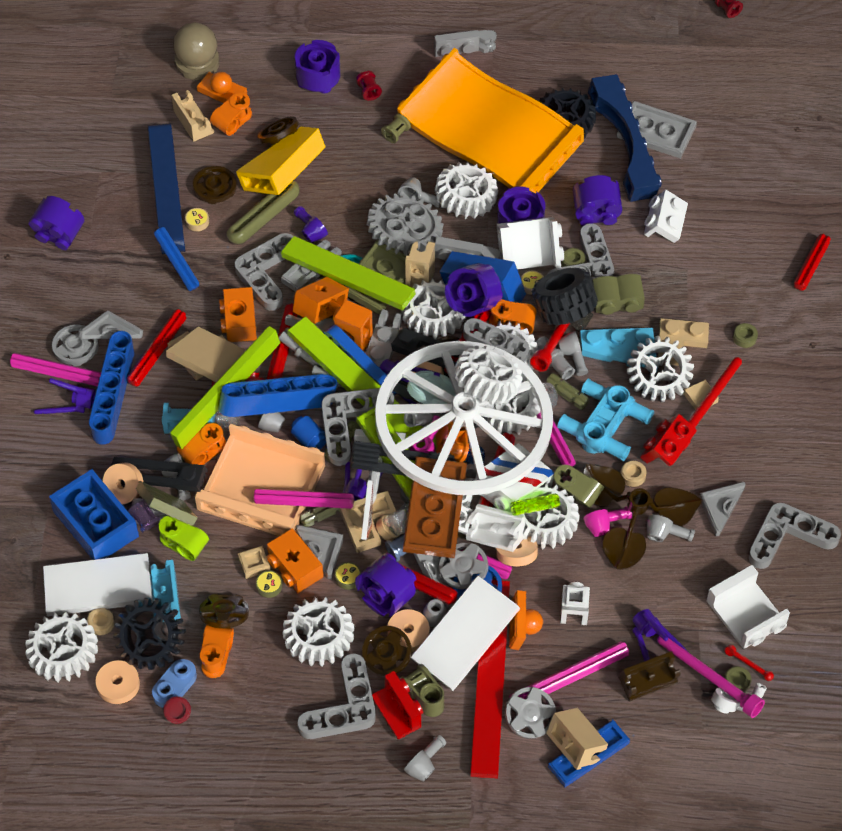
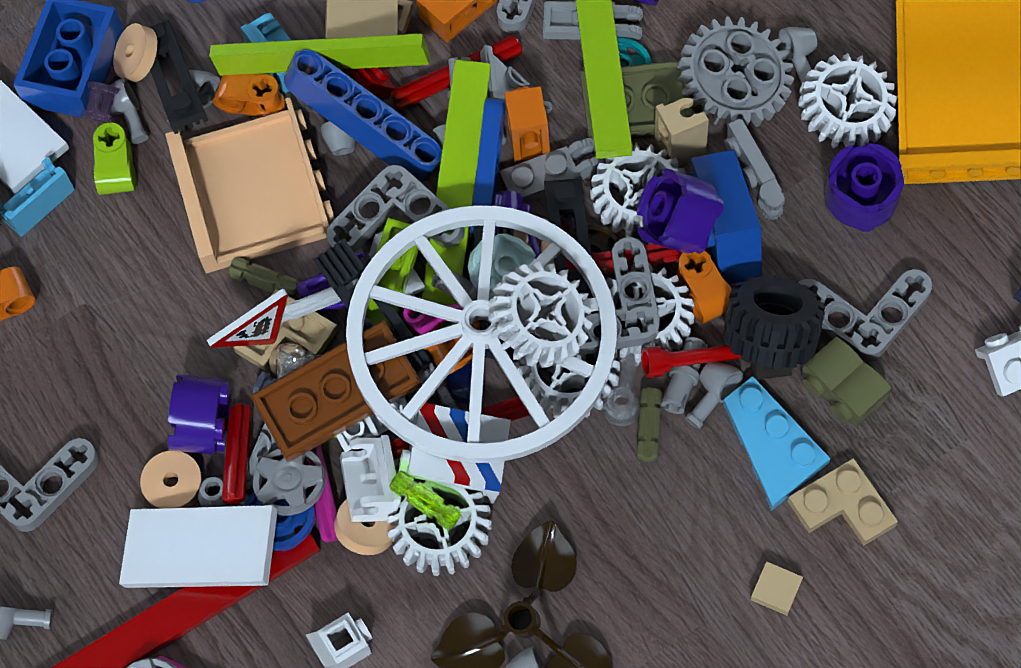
camera: 60 degrees right, 10 degrees up
(166, 503) = (128, 111): olive tile -> none
(224, 609) = (51, 269): dark brown wheel -> none
(253, 562) = (143, 256): tan tile -> none
(269, 584) = (125, 292): tile -> none
(294, 560) = (172, 313): orange brick -> none
(304, 498) = (253, 242): dark pink axle -> none
(308, 432) = (350, 182): blue brick -> none
(320, 299) = (539, 61): orange brick -> none
(323, 643) = (66, 385): white gear -> none
(324, 546) = (214, 312): light grey tile -> none
(346, 575) = (197, 362): tile -> none
(387, 650) = (122, 478): dark brown wheel -> none
(397, 706) = (54, 542): red bracket -> none
(423, 687) = (100, 547): olive piece -> none
(524, 622) = (274, 603): orange tile -> none
(529, 279) = (782, 265): tile -> none
(531, 242) = (820, 225): white panel -> none
(560, 445) = (568, 458): dark pink axle -> none
(573, 257) = (859, 292): olive tile -> none
(581, 487) = (509, 532): olive piece -> none
(597, 200) = (963, 258): dark purple brick -> none
(599, 521) = (481, 594): dark pink bar -> none
(605, 419) = (639, 497): medium azure piece -> none
(633, 473) = (590, 585): tan tile -> none
(652, 363) = (732, 513): white gear -> none
(669, 441) = (664, 595): red bracket -> none
(714, 392) = (688, 607): red piece -> none
(745, 335) = (921, 580): olive tile -> none

